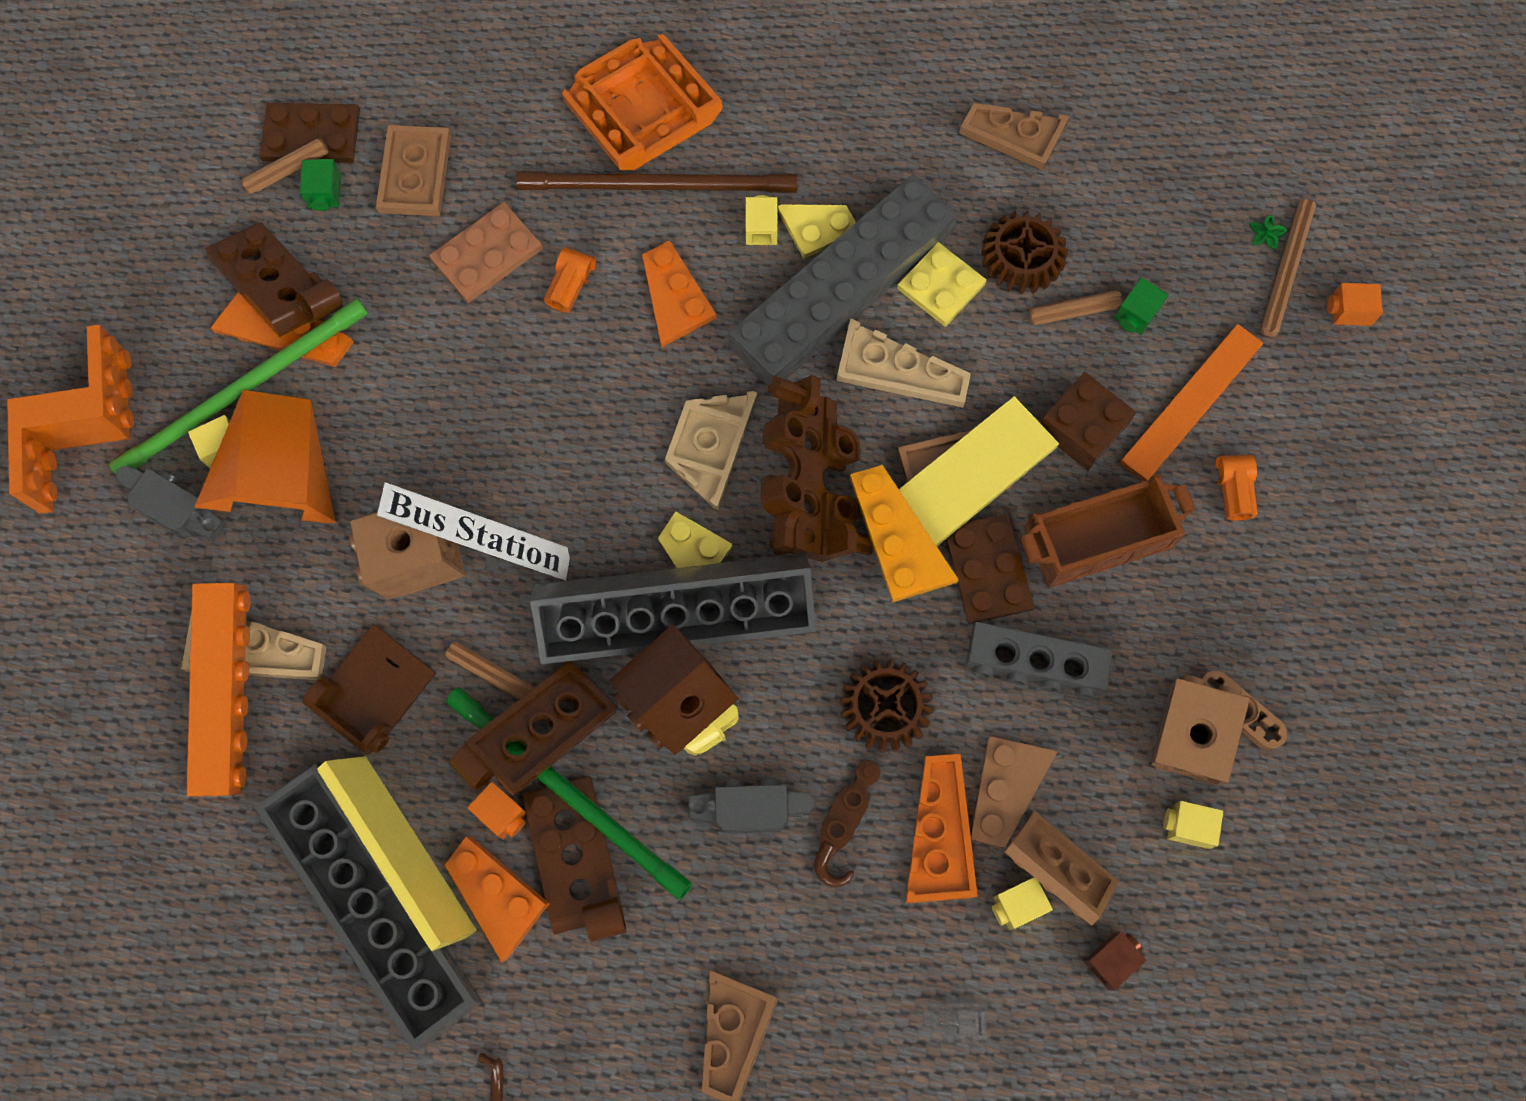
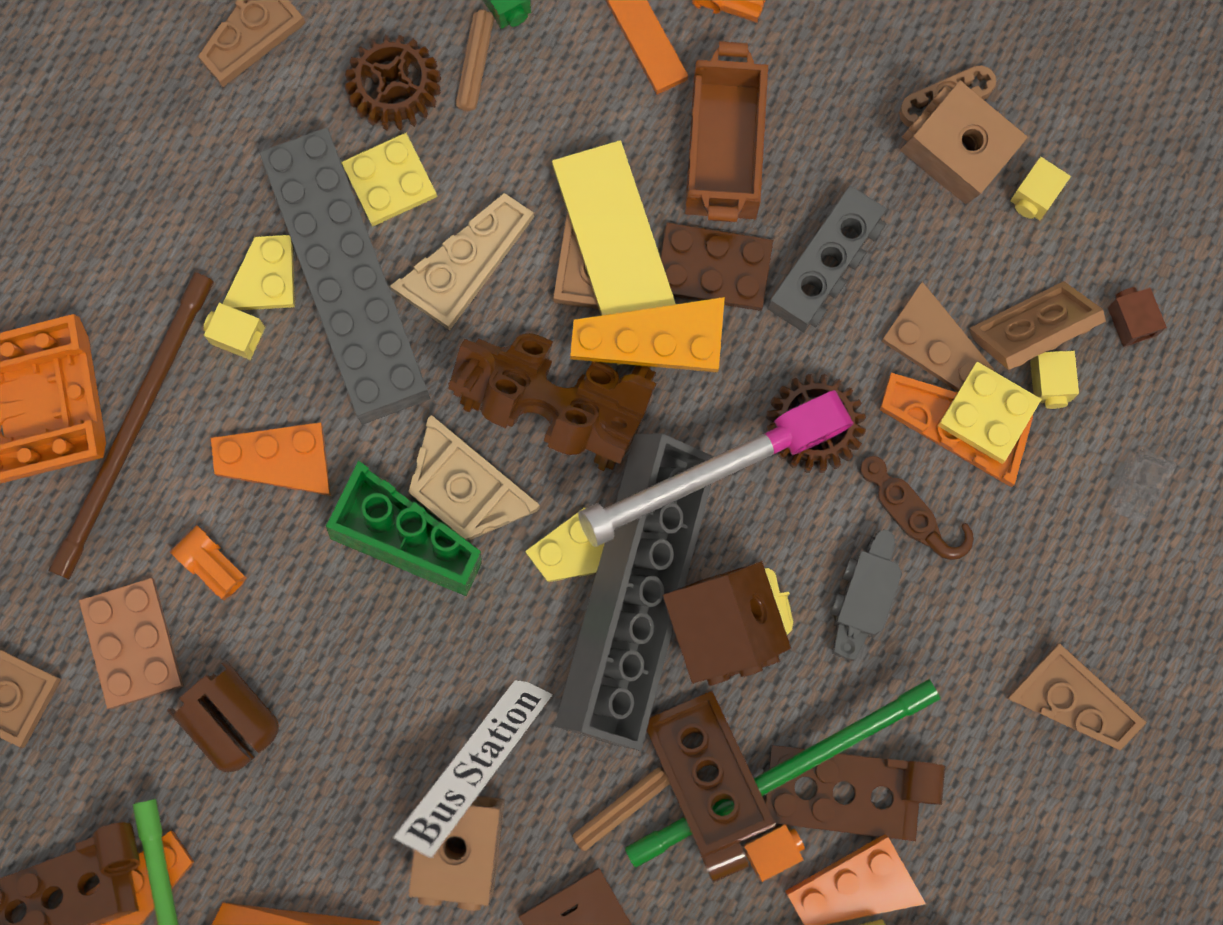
camera: 70 degrees left, 5 degrees up
(449, 338) = (239, 707): none -> reddish brown cylinder
(650, 399) = (400, 532): none -> green wedge
(864, 684) = (795, 430): none -> flat silver piece
(961, 854) = (989, 412): none -> light yellow plate
(1087, 420) = (605, 103): reddish brown brick -> none

